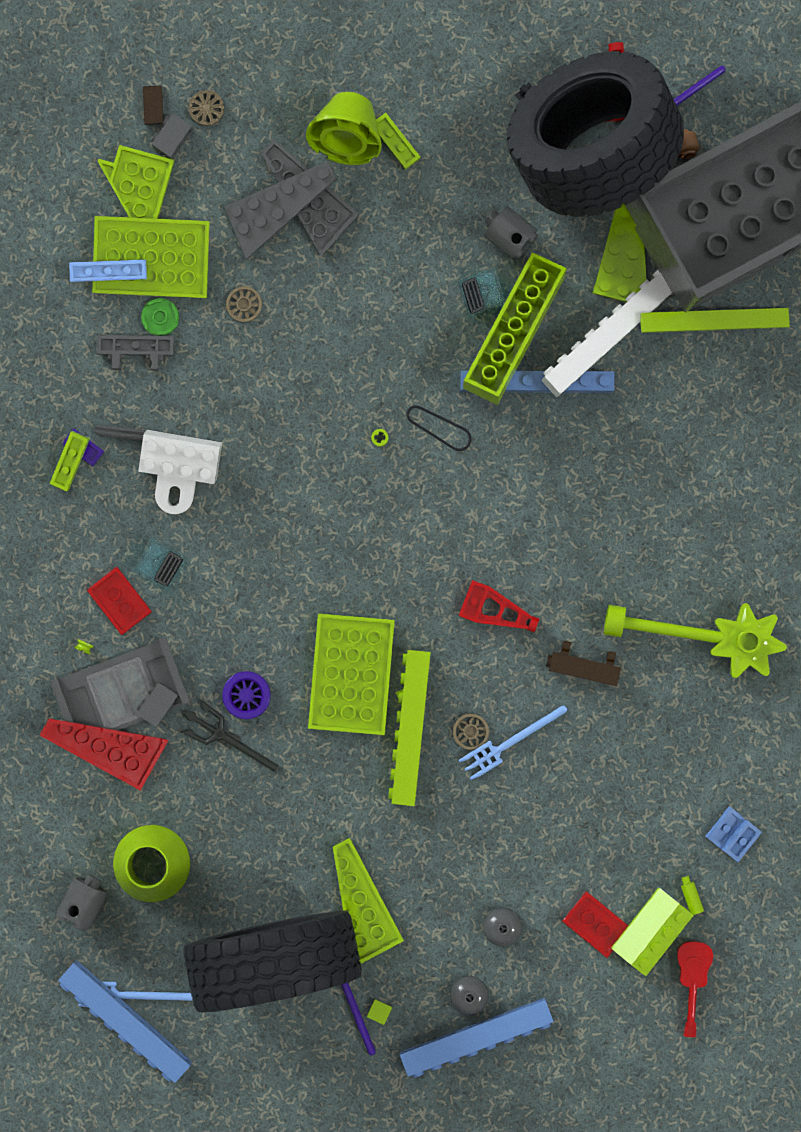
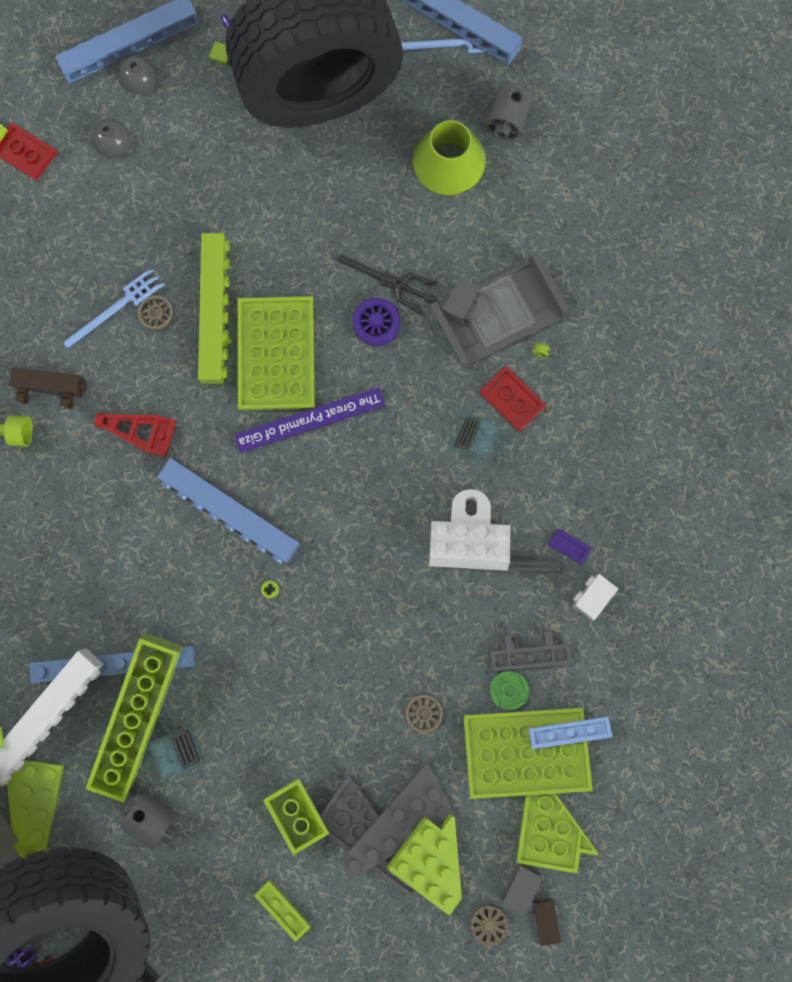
camera: 170 degrees right, 5 degrees down
(66, 395) = (594, 597): none -> white brick
(69, 461) = (581, 530): lime plate -> none
(114, 751) = (499, 251): red wing -> none
(252, 168) = (431, 863): none -> lime wing
(324, 602) = (309, 420): none -> dark purple tile
(346, 130) = (333, 917): lime cone -> none
(371, 920) = (245, 144): lime wing -> none
(373, 223) = (296, 816): none -> lime slope
(412, 518) = (230, 511): none -> medium blue brick
(444, 419) = (216, 598): black piece -> none

